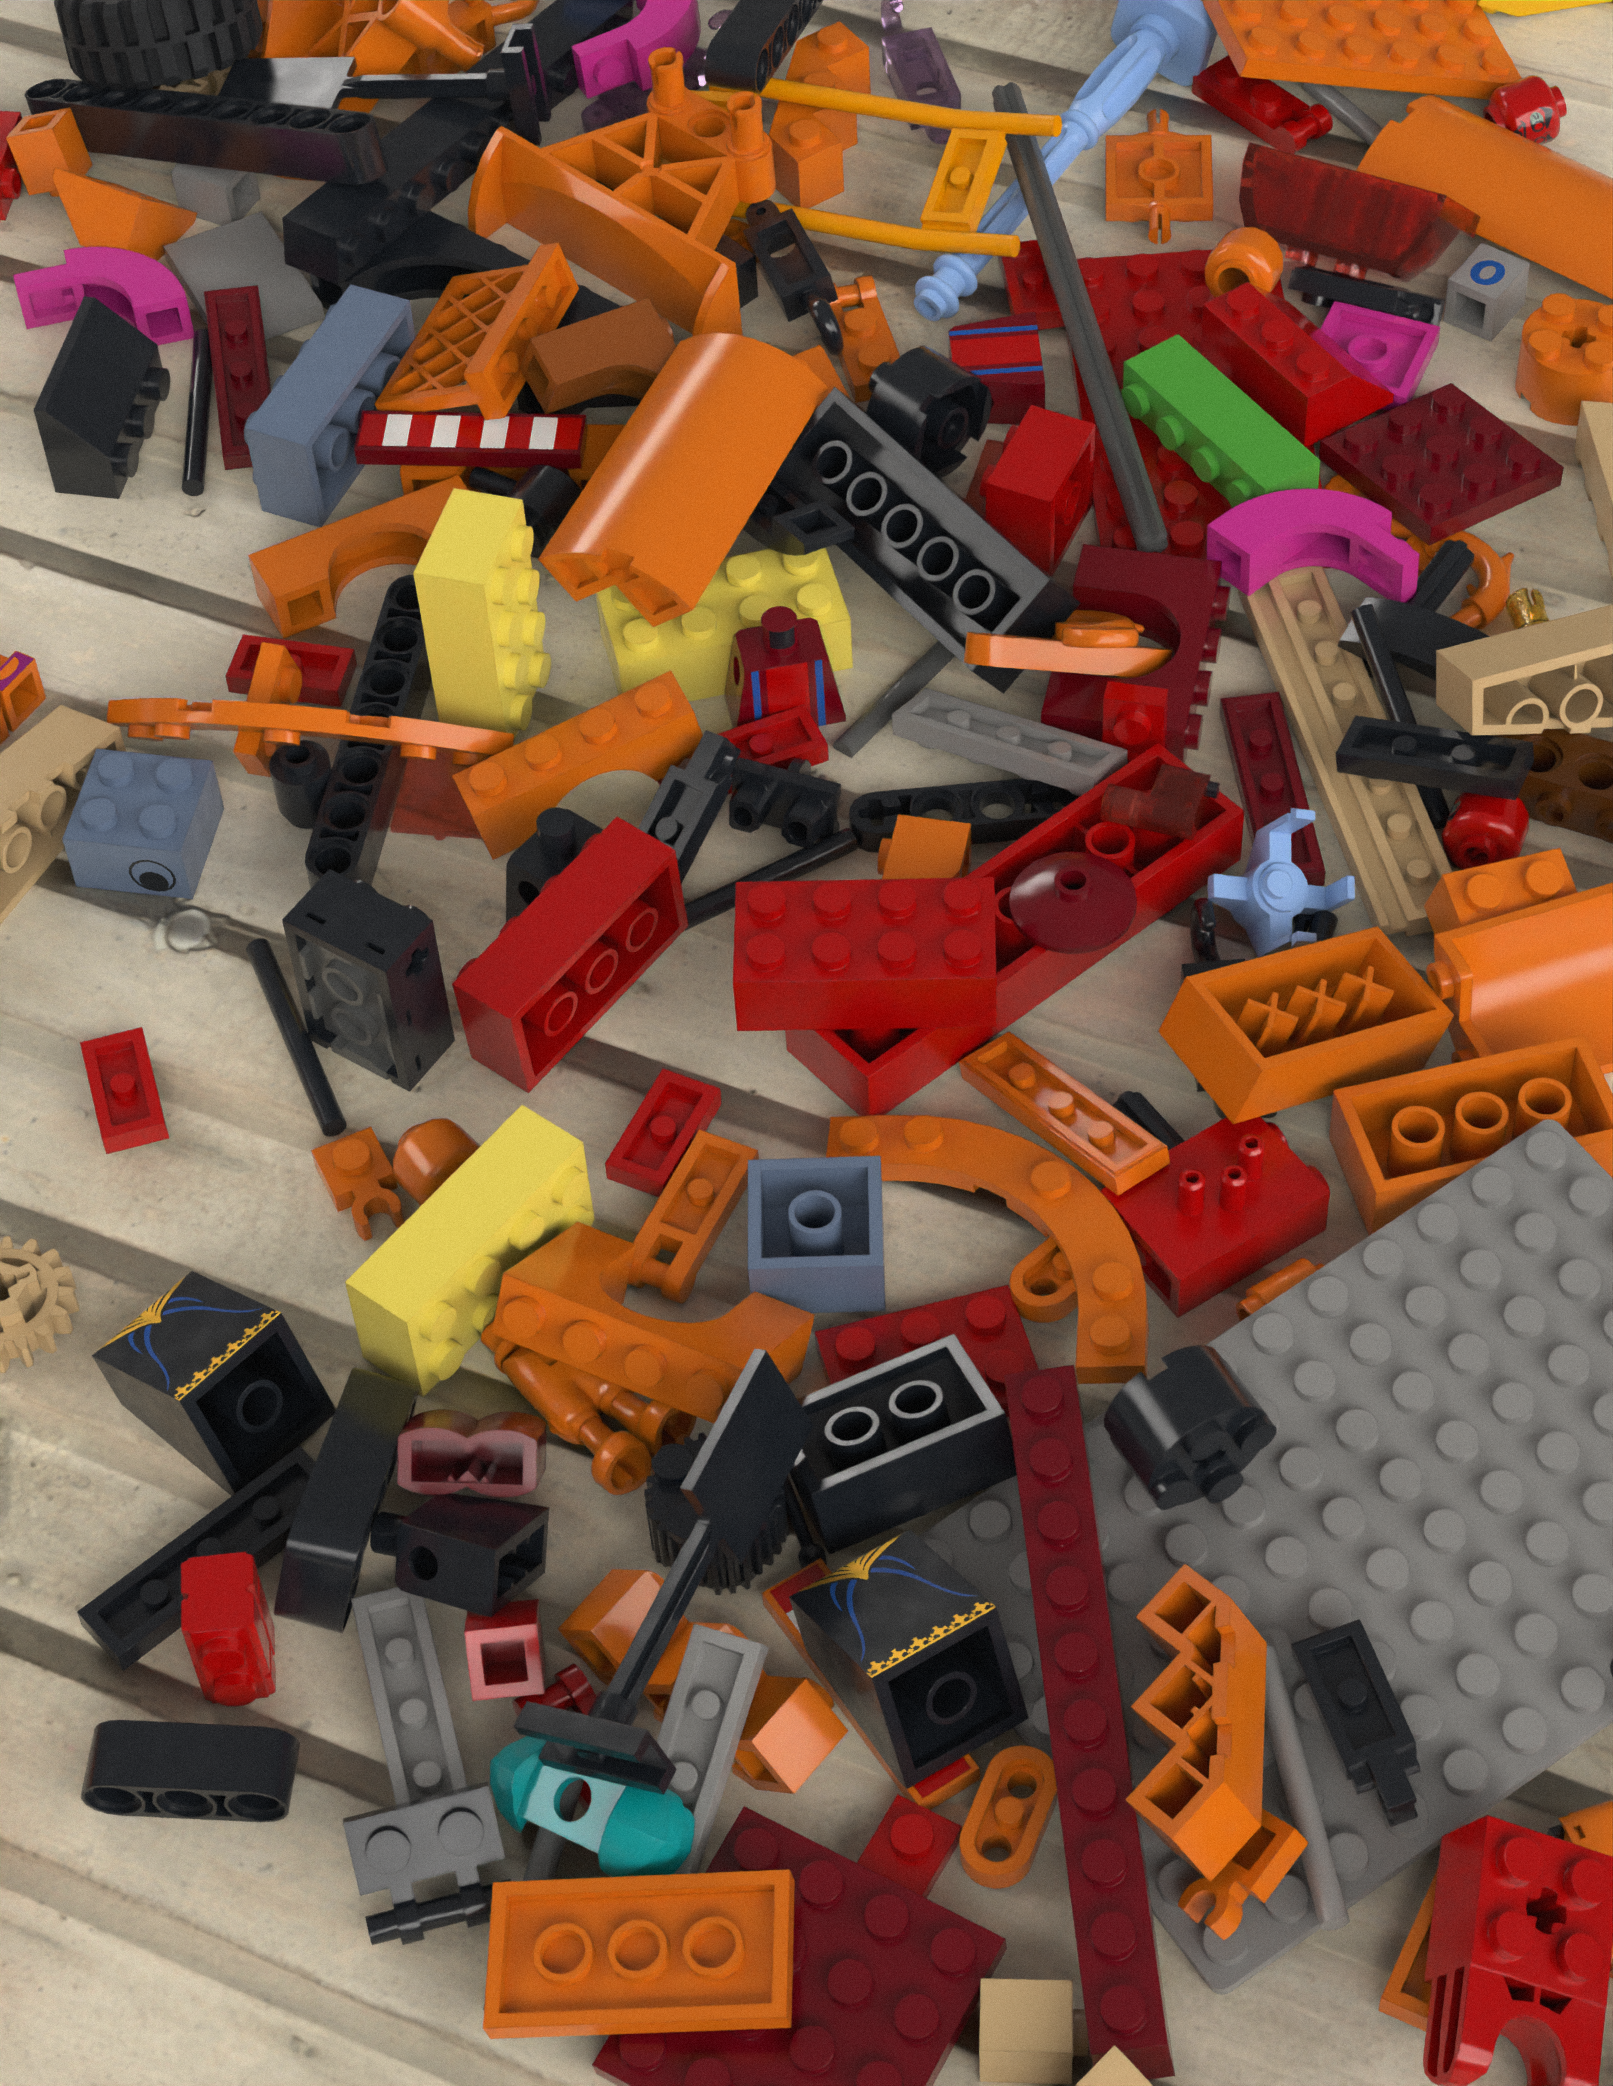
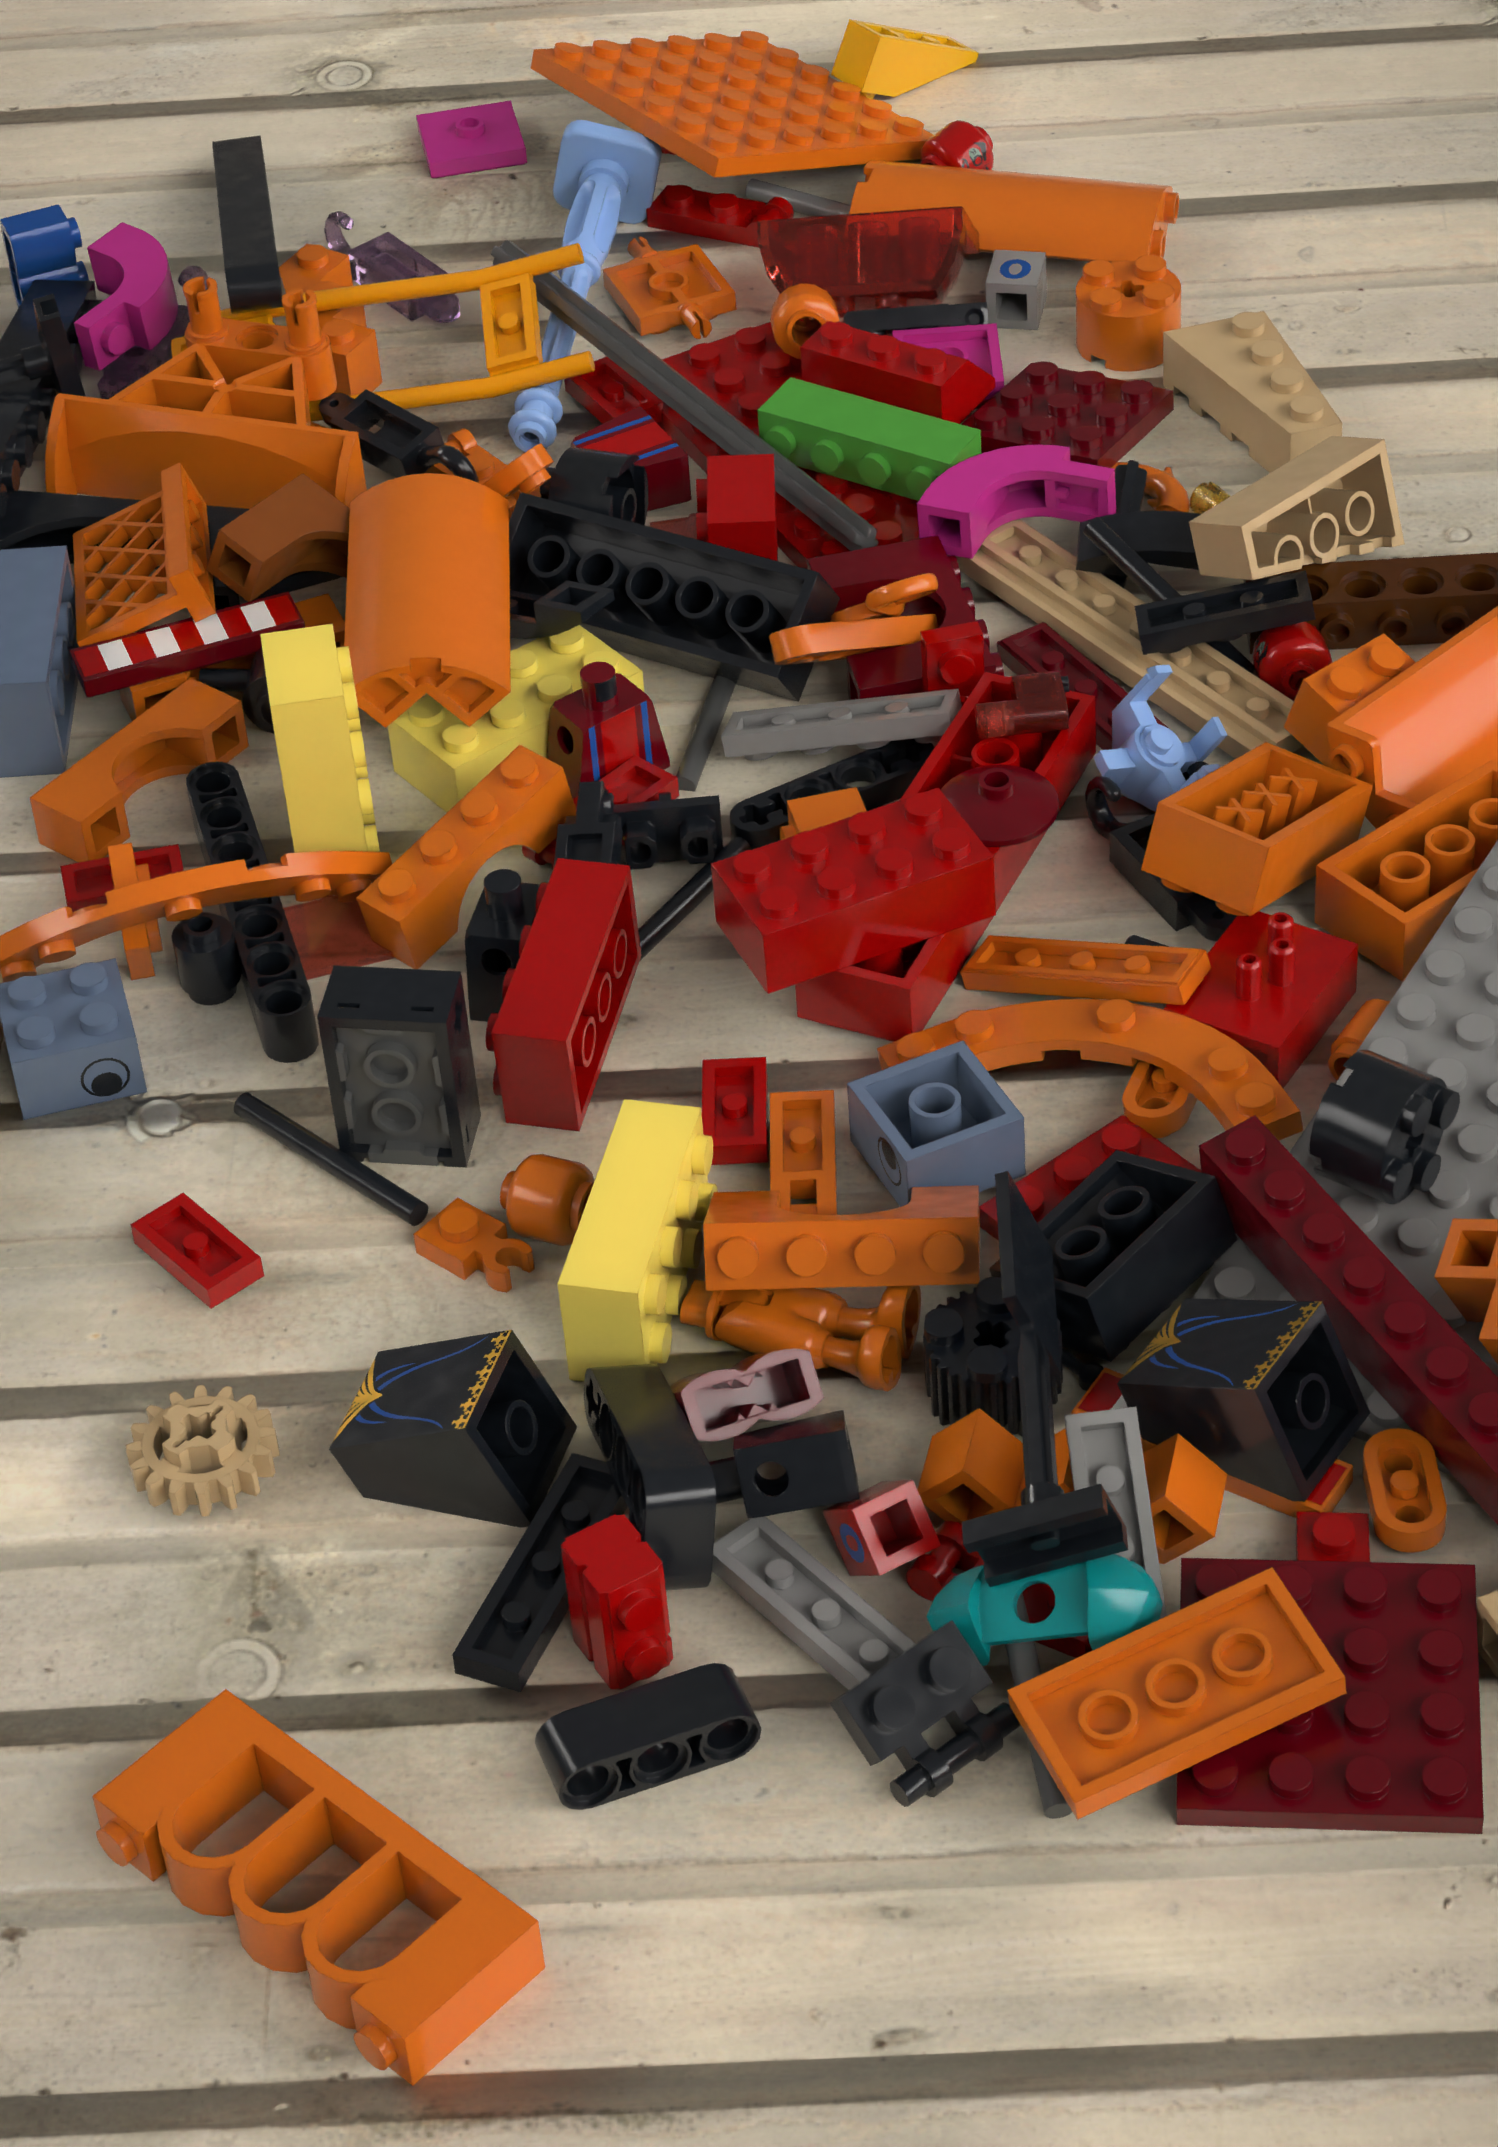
camera: 25 degrees left, 10 degrees down
(848, 366) = (522, 474): none -> orange plate

